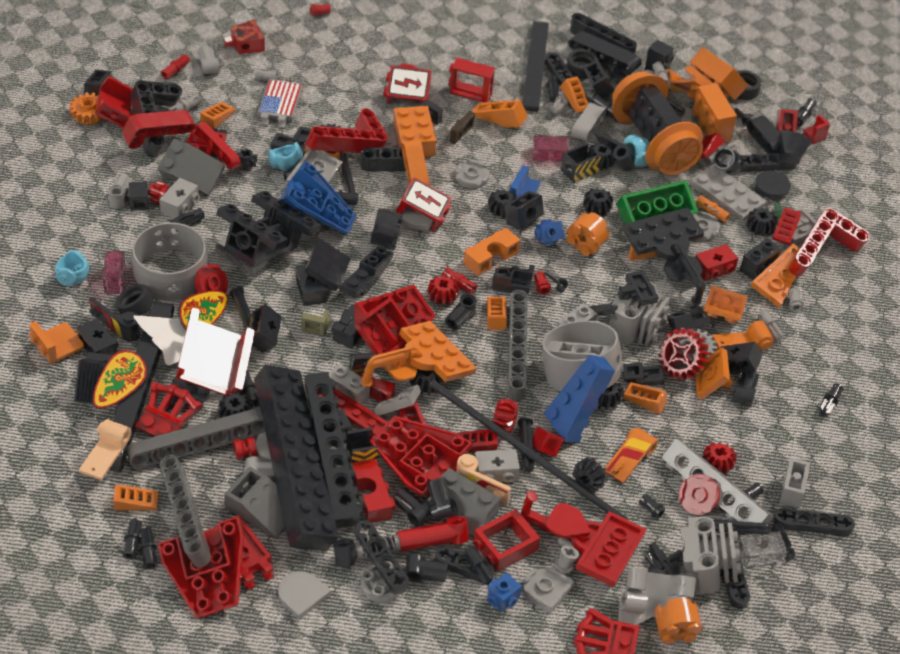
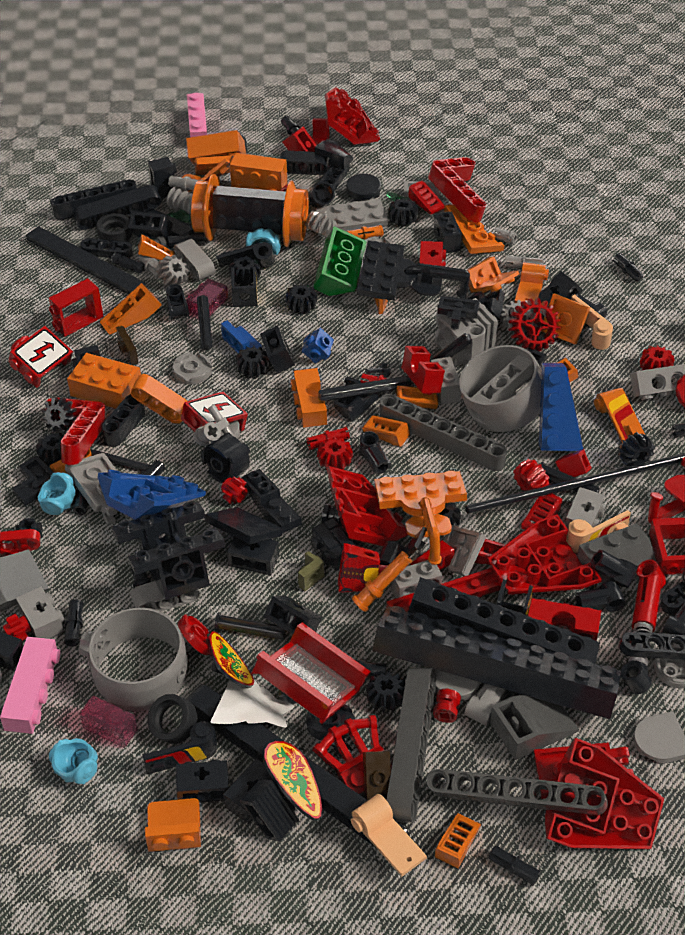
camera: 55 degrees left, 0 degrees up
(119, 221) = (30, 685): none -> bright pink brick
(148, 548) = (536, 854): black axle -> none
(154, 426) = (376, 773): none -> dark brown plate
(320, 362) = (375, 588): none -> orange pin
(332, 345) = (357, 568): none -> red torso
(354, 117) = (51, 414): none -> black gear
(361, 247) = (234, 490): none -> red gear
(407, 206) = (212, 431): none -> light grey piece
(520, 155) = (204, 322): none -> black axle
(522, 277) = (363, 388): none -> black axle
(525, 133) = (176, 301): none -> black piece
(543, 314) = (415, 396): none -> orange plate
(563, 110) = (172, 270): none -> light grey gear
(564, 303) = (424, 374): none -> red arch
(588, 233) = (343, 319): orange brick -> none
(689, 171) = (320, 223): none -> light grey gear
(720, 402) = (601, 327): none -> light nougat door
(756, 49) = (196, 114): none -> bright pink brick
(848, 133) = (349, 118): none -> red wedge

